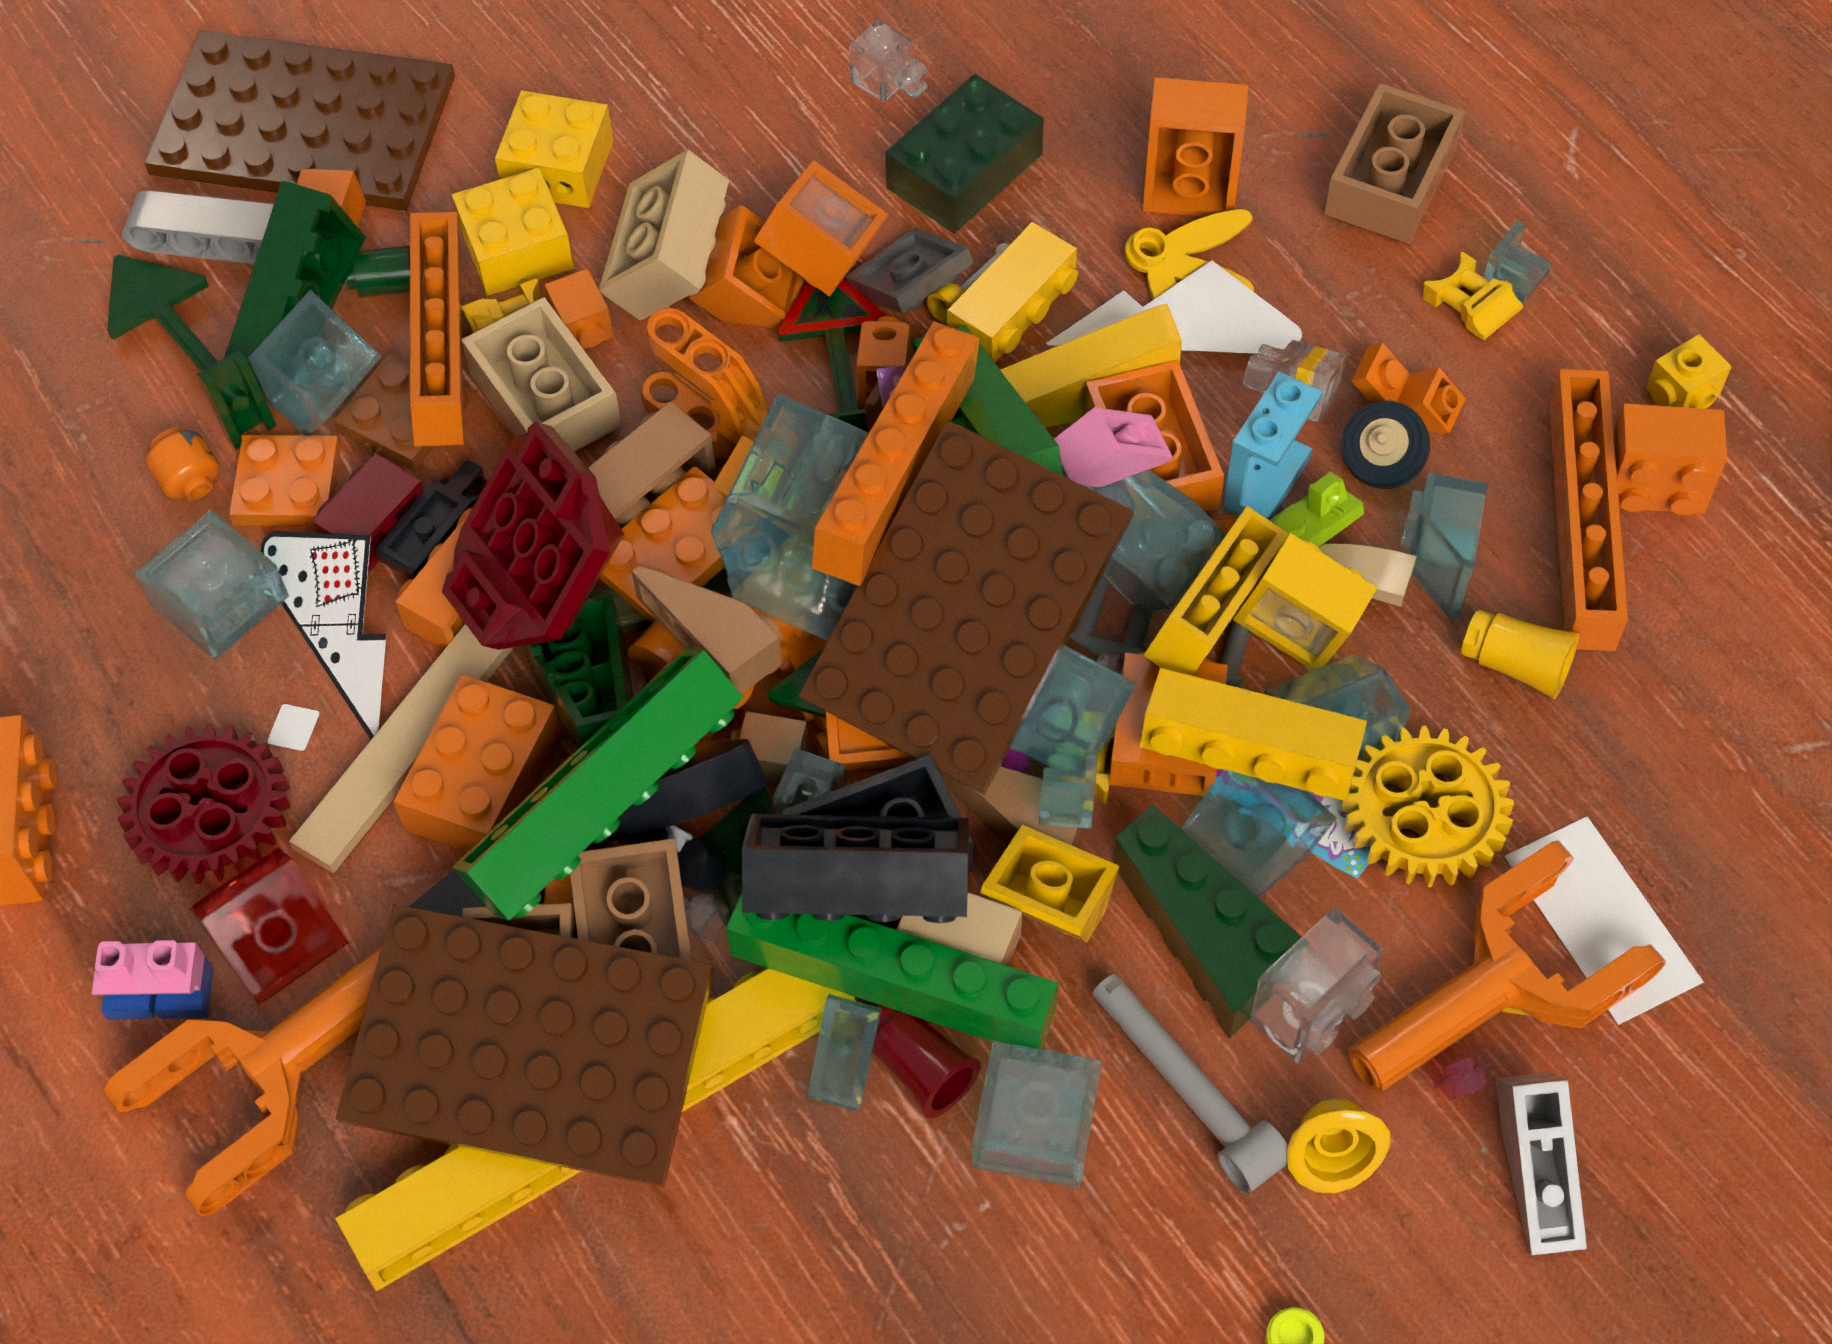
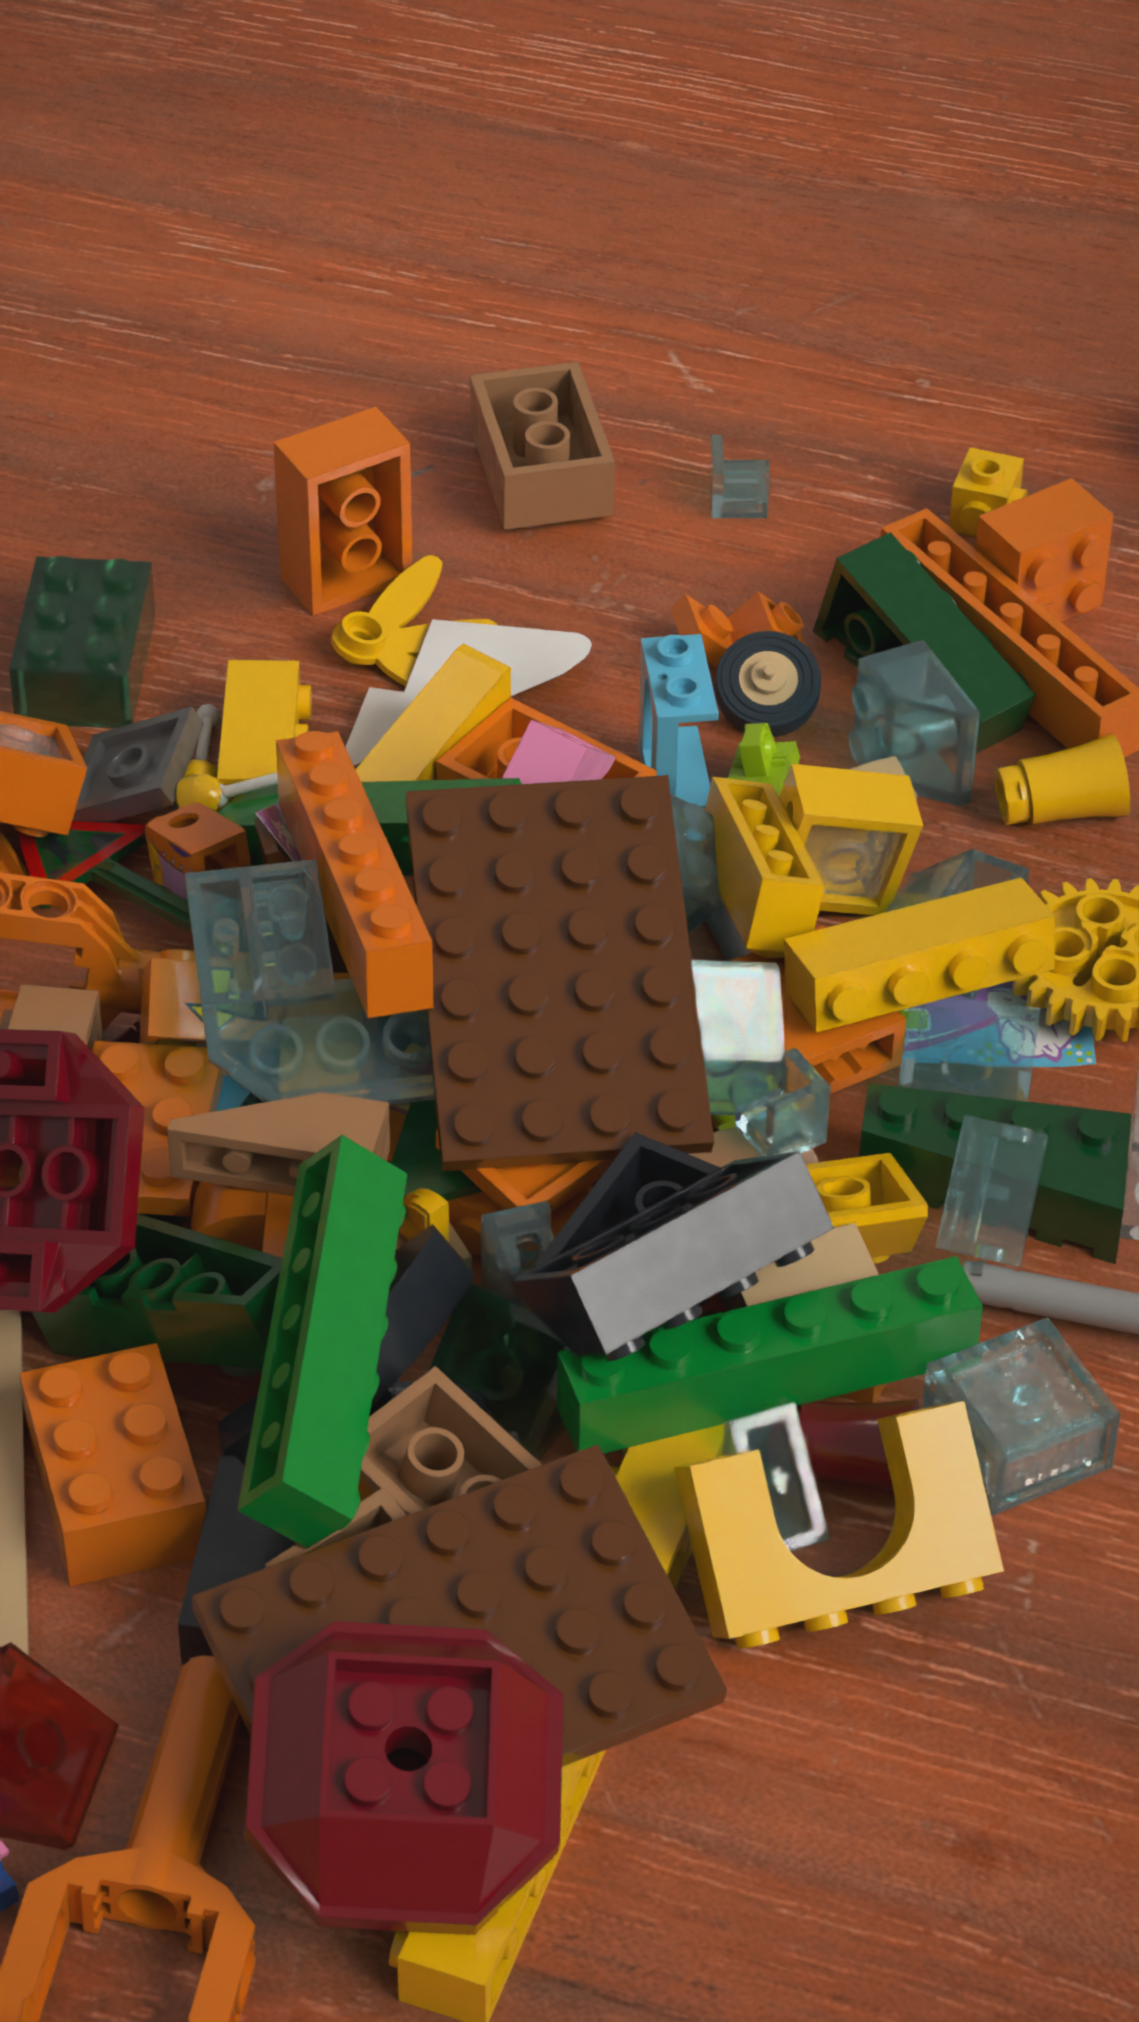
camera: 40 degrees left, 15 degrees down
(466, 1116) = (391, 1843): none -> dark red piece
(769, 1122) = (936, 1540): none -> yellow arch
(775, 725) = (422, 1210): none -> yellow tile
(927, 310) = (214, 793): none -> yellow hinge
(1154, 940) = (992, 1191): none -> clear light blue hinge
(1302, 361) = (614, 662): clear hips -> none
(1482, 312) = (737, 528): yellow piece -> none
(1520, 467) = (887, 600): none -> dark green wedge

